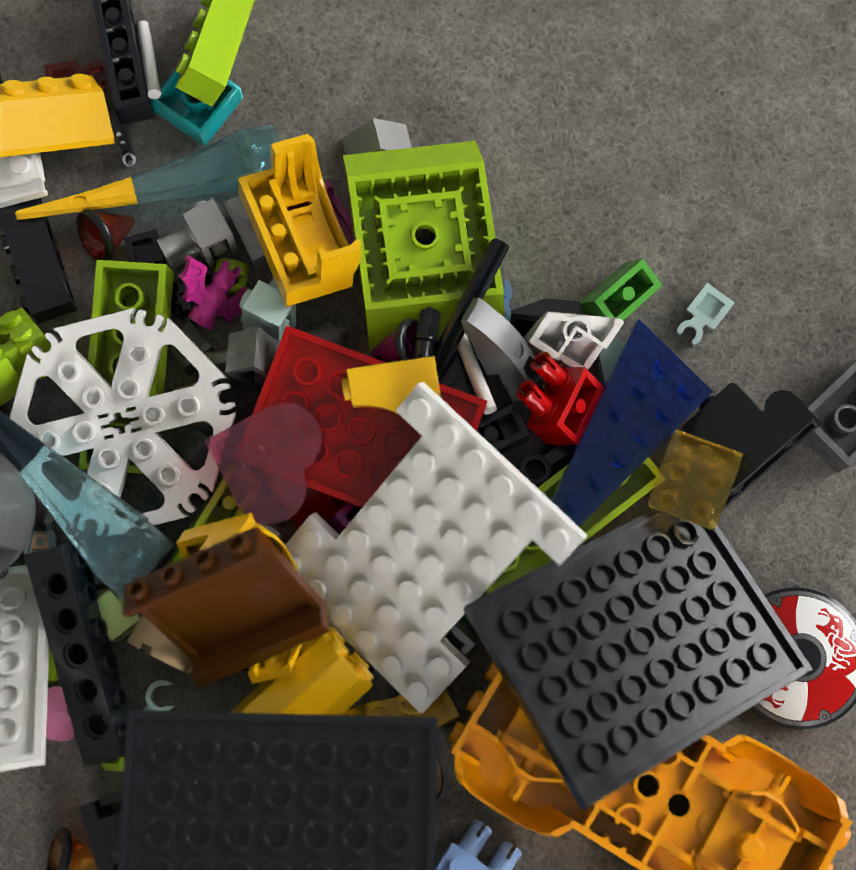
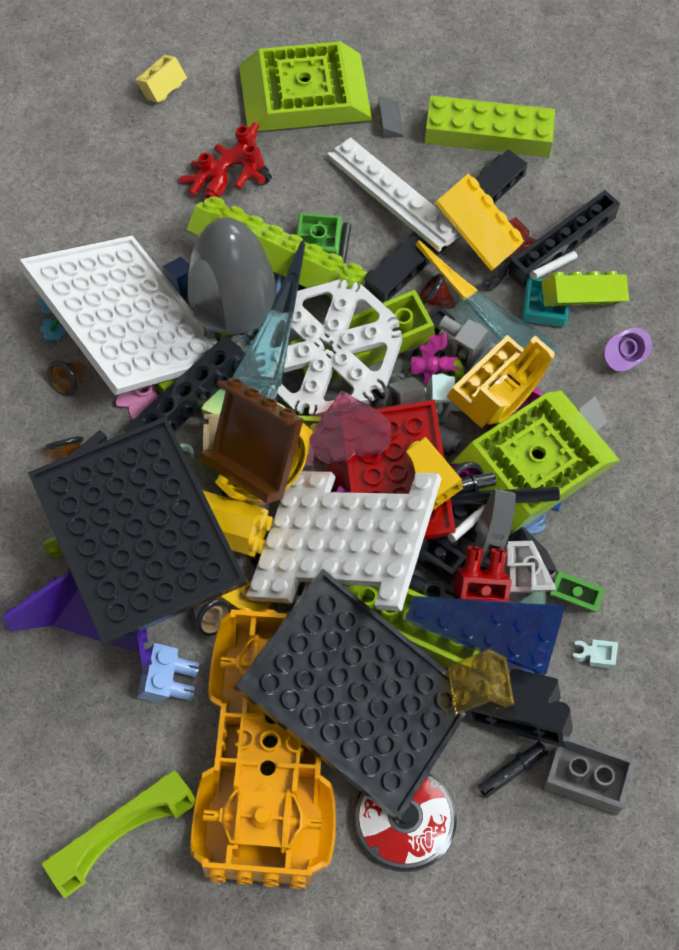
camera: 65 degrees right, 15 degrees down
(324, 39) = (628, 349): none -> medium lavender piece
(800, 501) = (521, 763): none -> black pin

